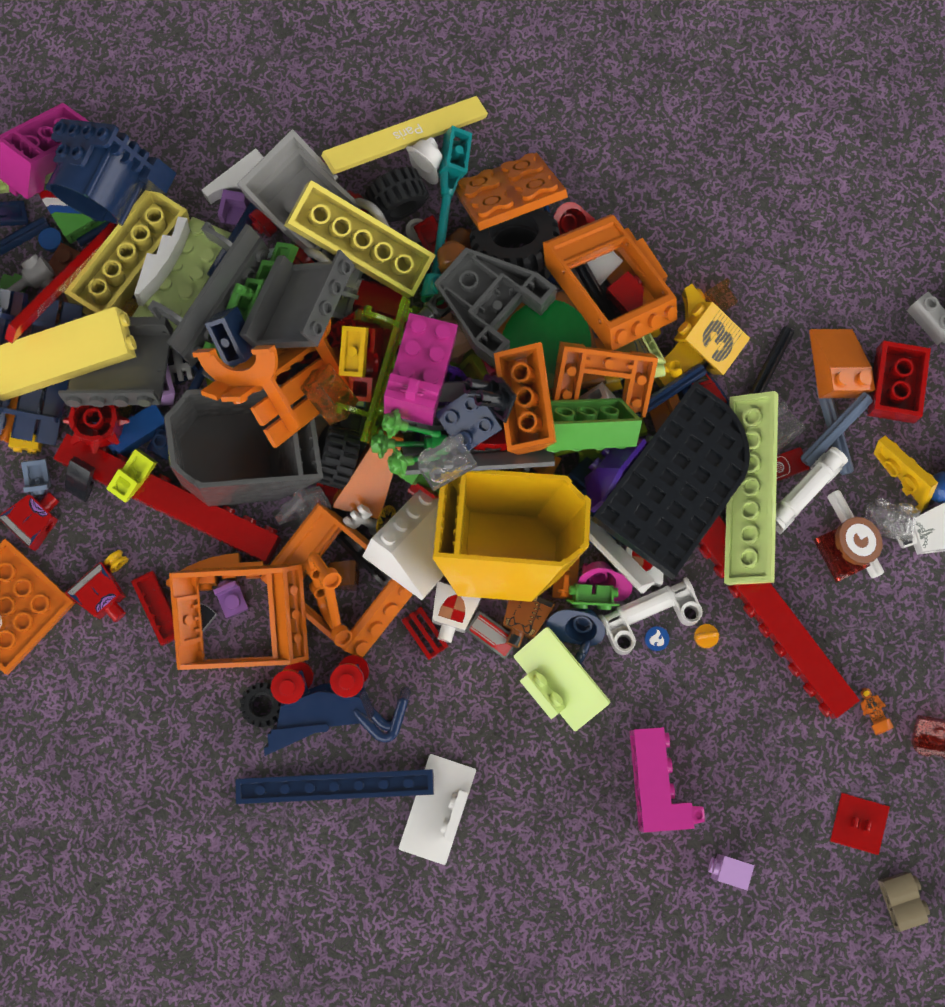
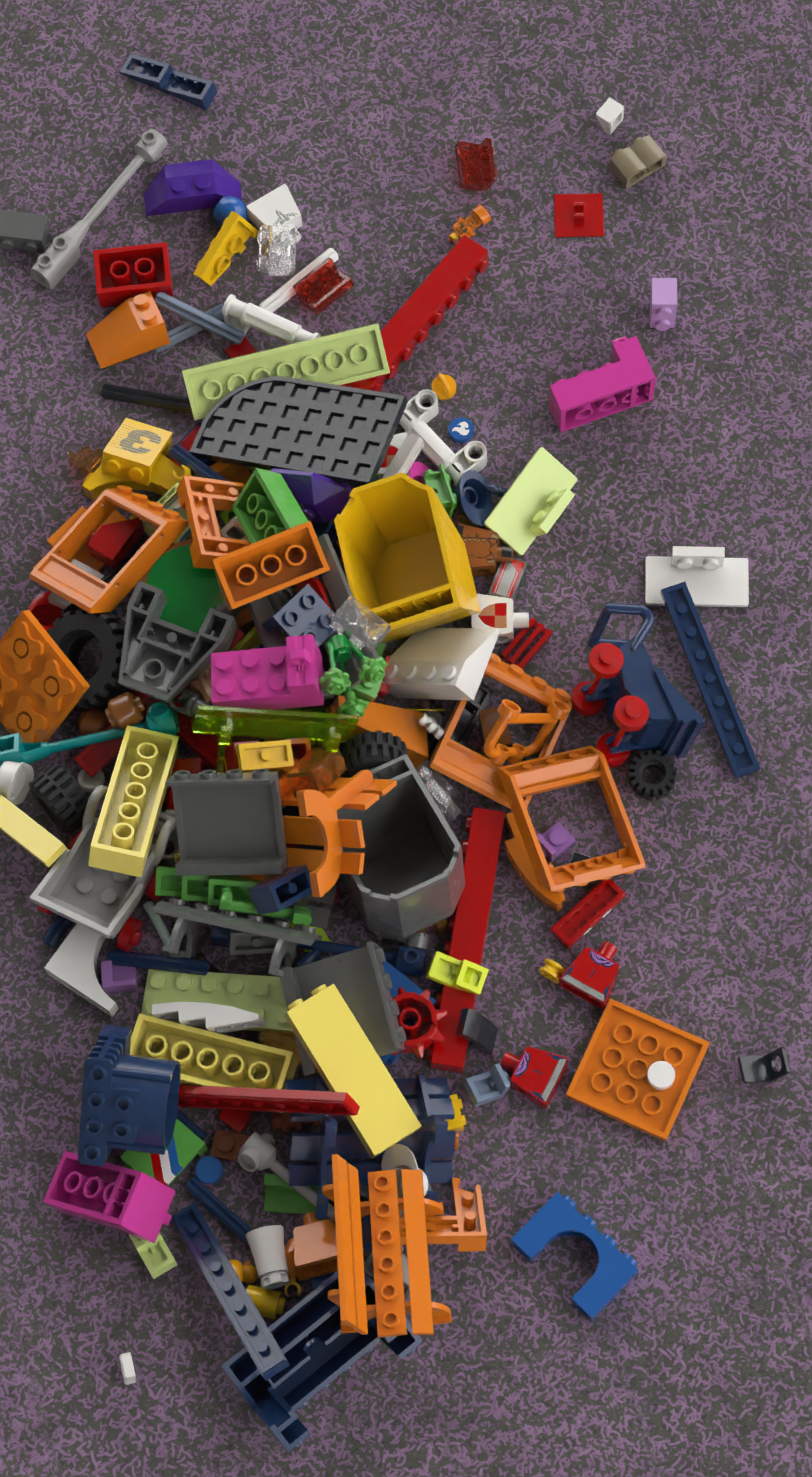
camera: 105 degrees left, 10 degrees down
(495, 395) = (277, 589): black connector -> none
(859, 541) = (308, 269): dark orange tile -> none

